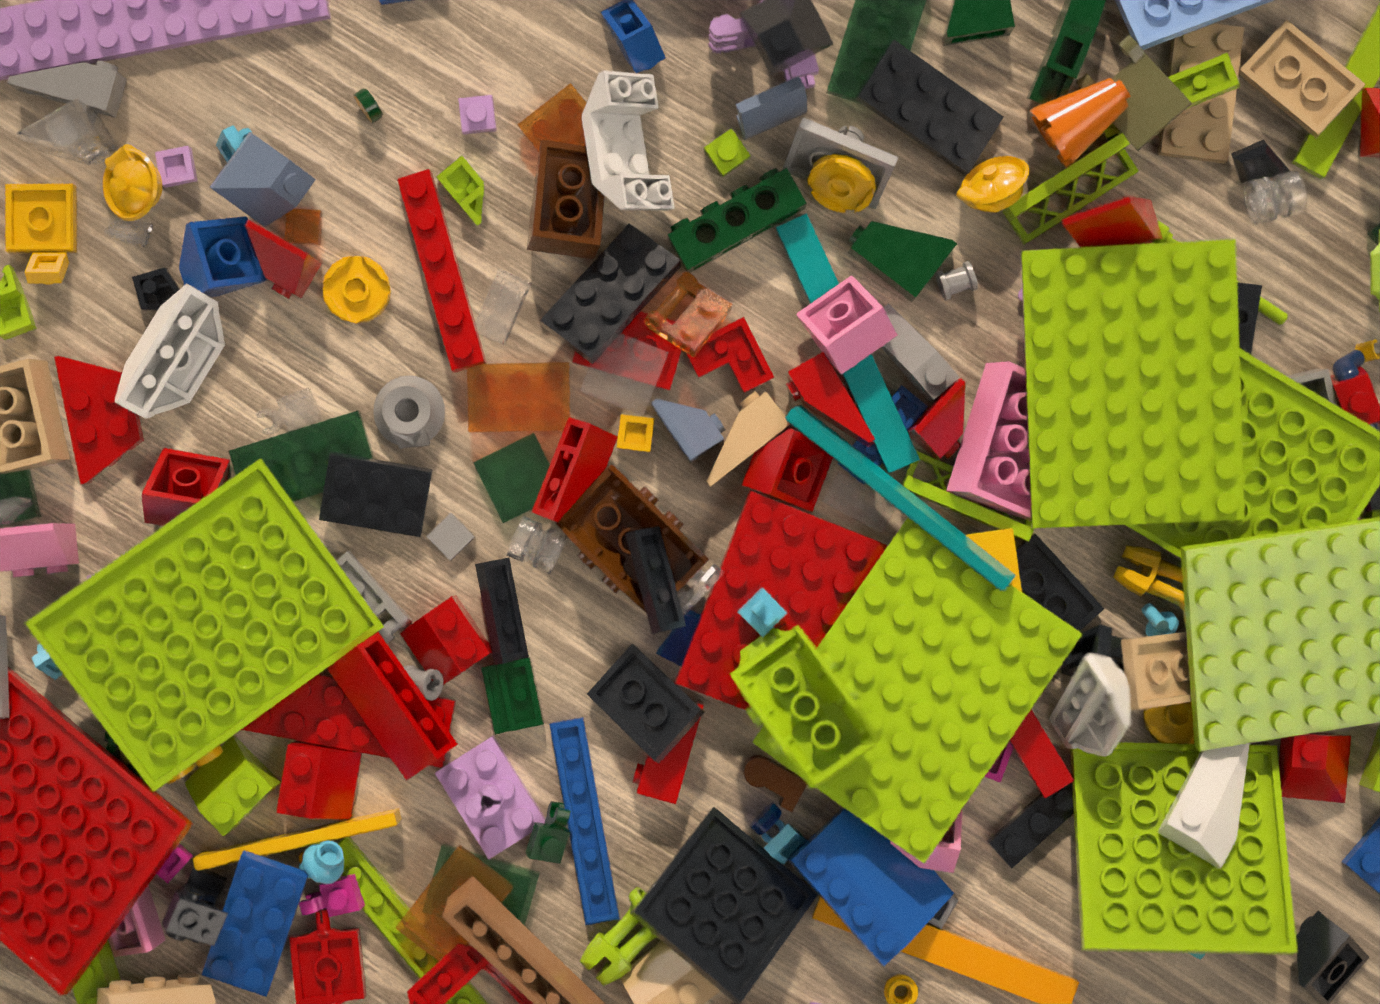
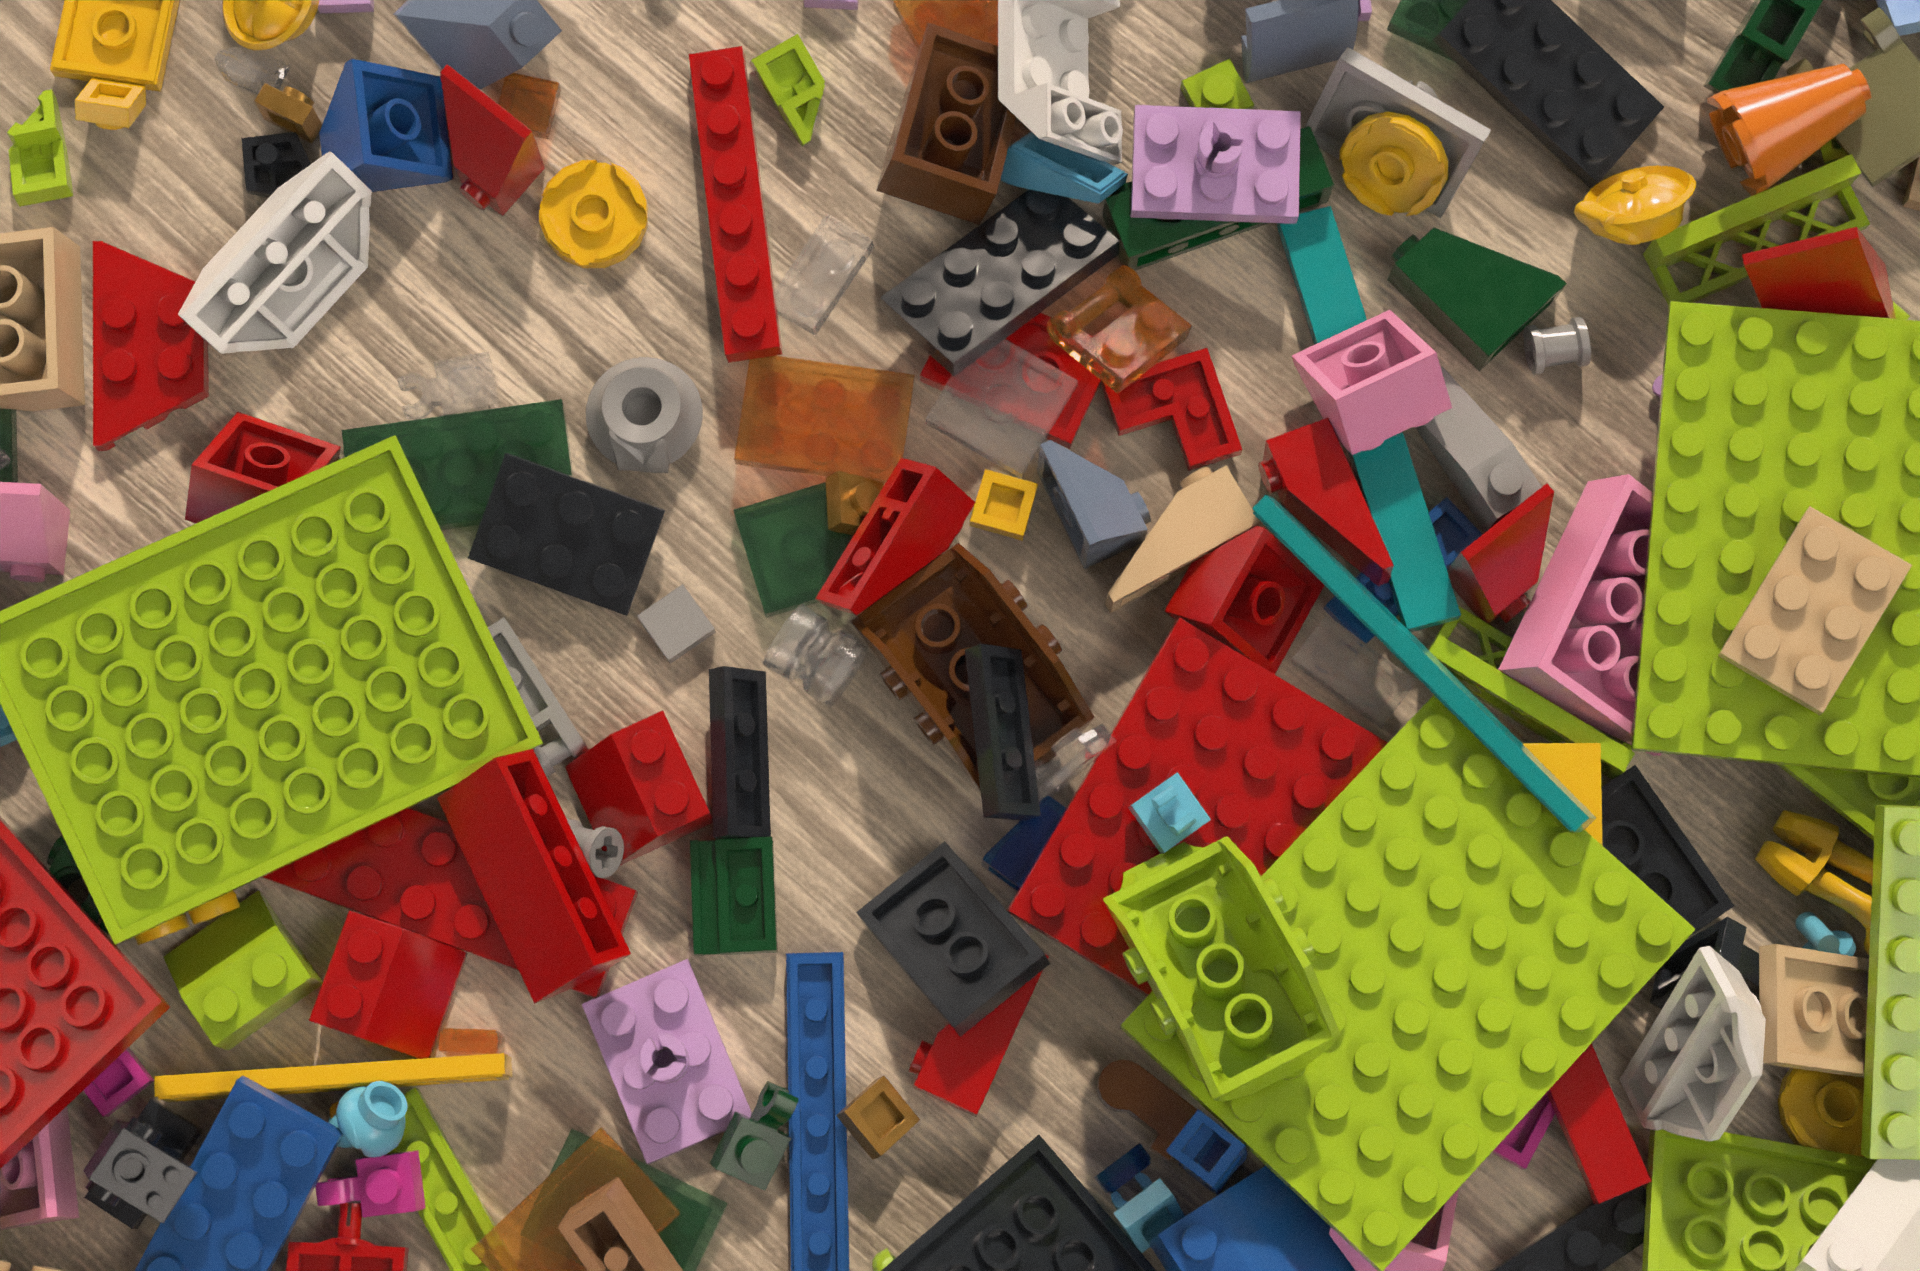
camera: 10 degrees right, 10 degrees down
(158, 254) = (289, 111): none -> pearl gold plate
(374, 806) = (471, 1042): none -> clear orange tile
(542, 447) = (849, 500): none -> pearl gold plate
(618, 812) = (878, 1117): none -> pearl gold plate
(634, 224) = (1059, 171): none -> dark azure slope
(732, 203) = (1215, 164): none -> lavender plate
(812, 807) = (1207, 1152): none -> blue leg
(1131, 432) = (1814, 610): none -> tan plate

